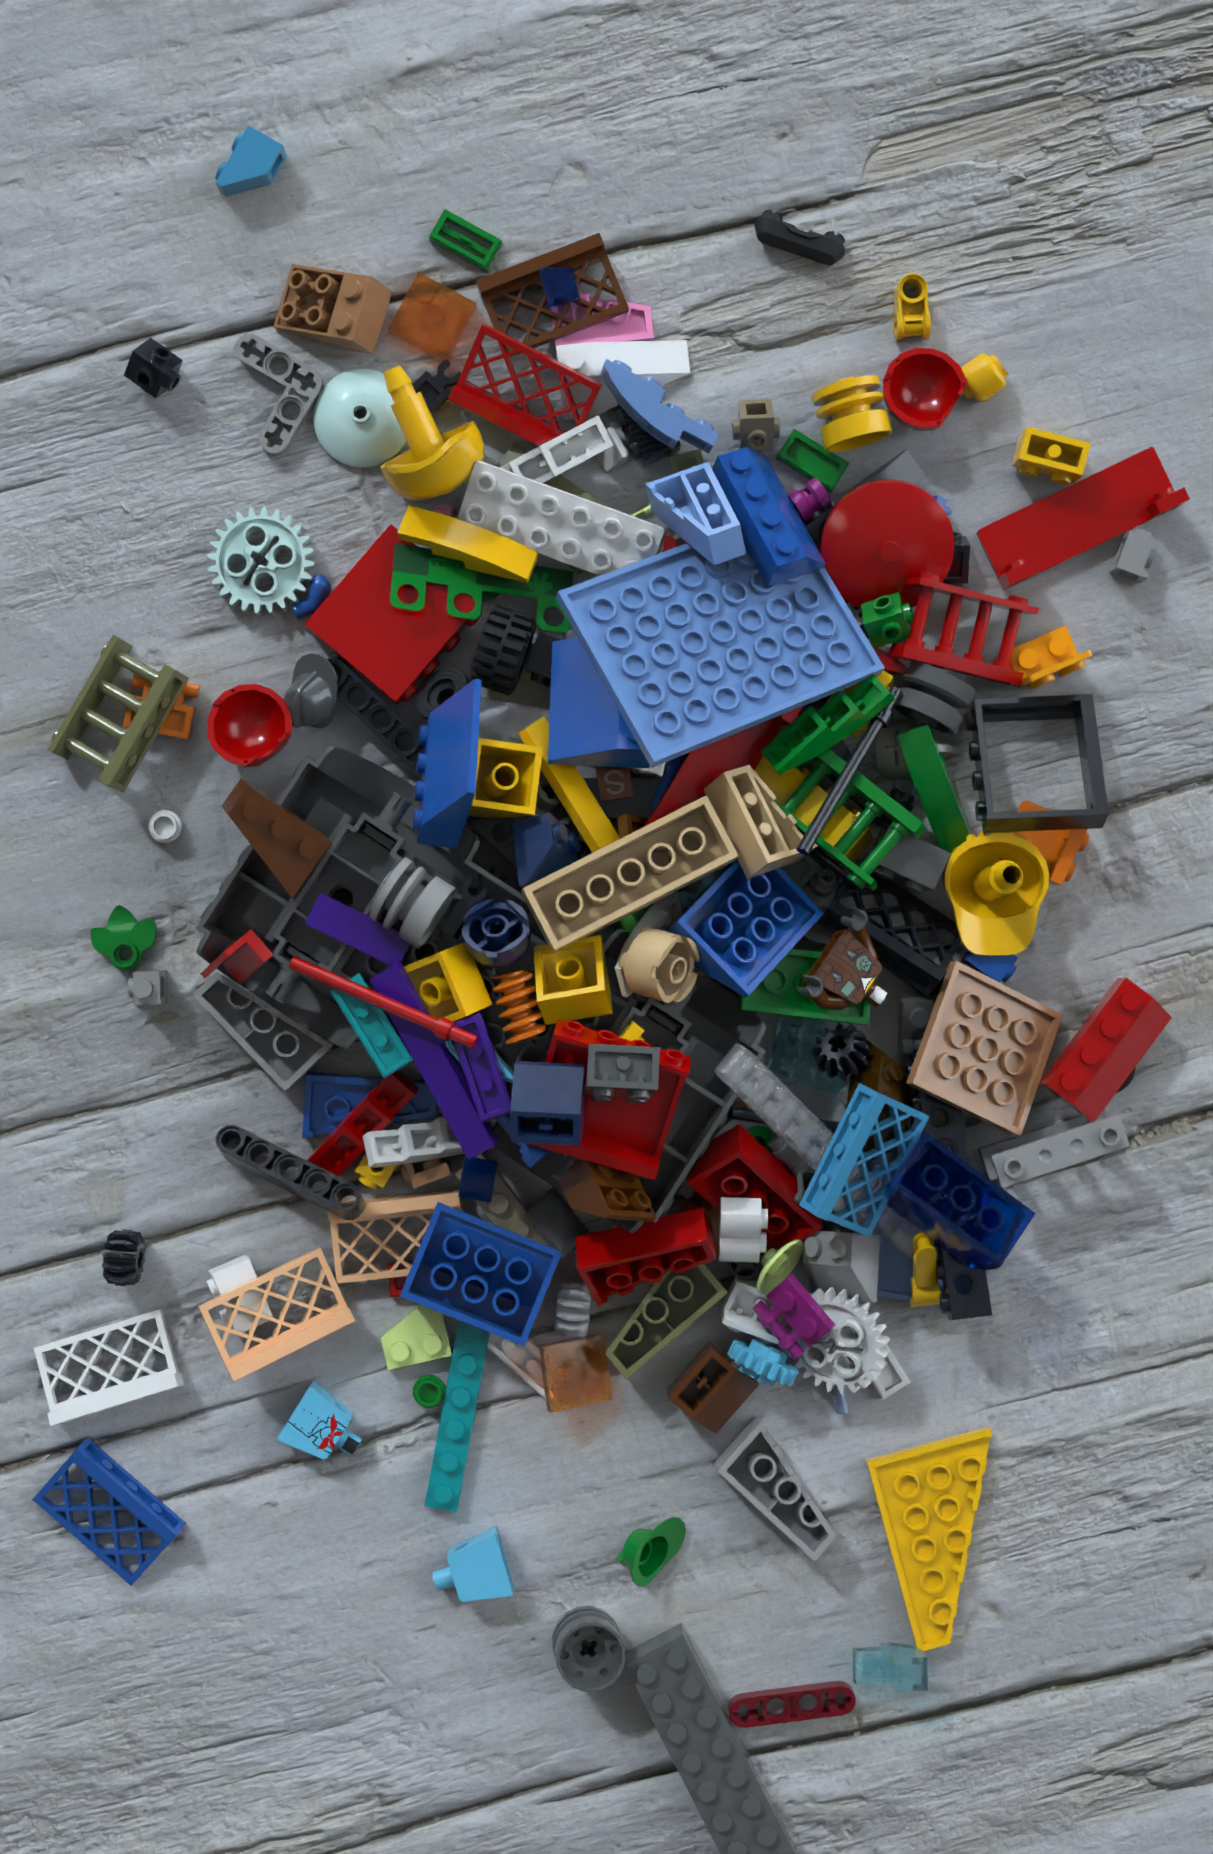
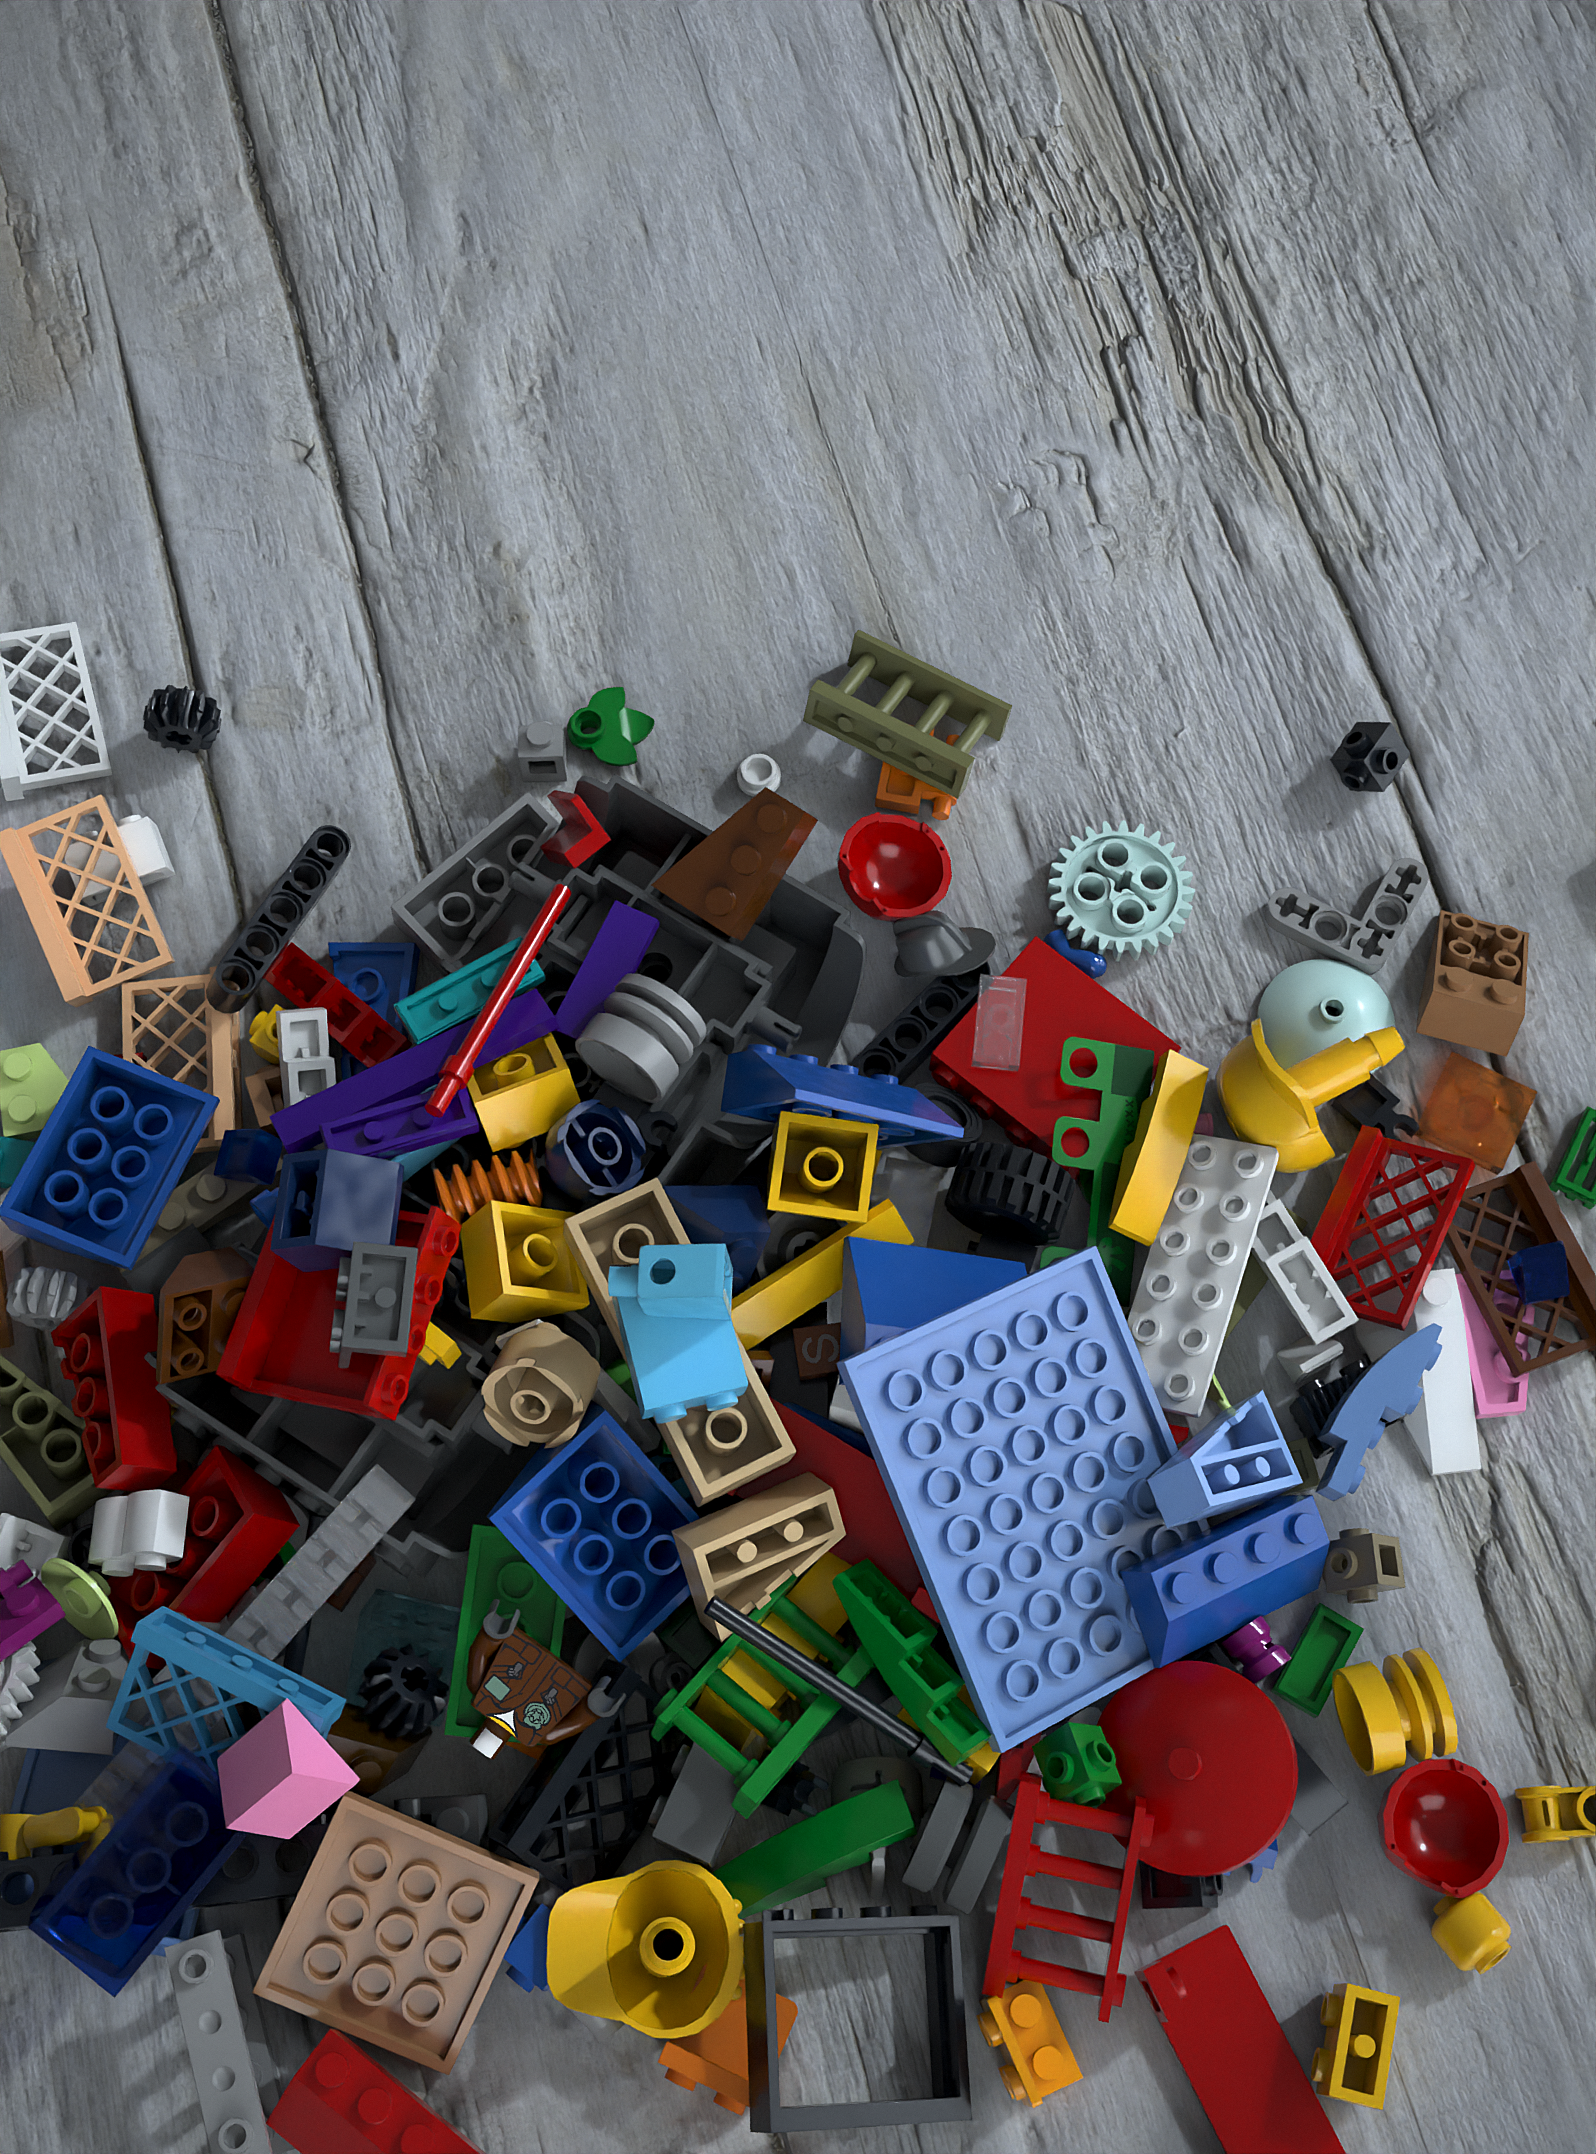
camera: 90 degrees right, 20 degrees down
(374, 653) = (999, 1022): none -> clear plate
(610, 855) = (699, 1283): none -> medium azure torso
(642, 870) = (679, 1361): none -> medium azure brick
(907, 1121) = (280, 1775): none -> bright pink slope

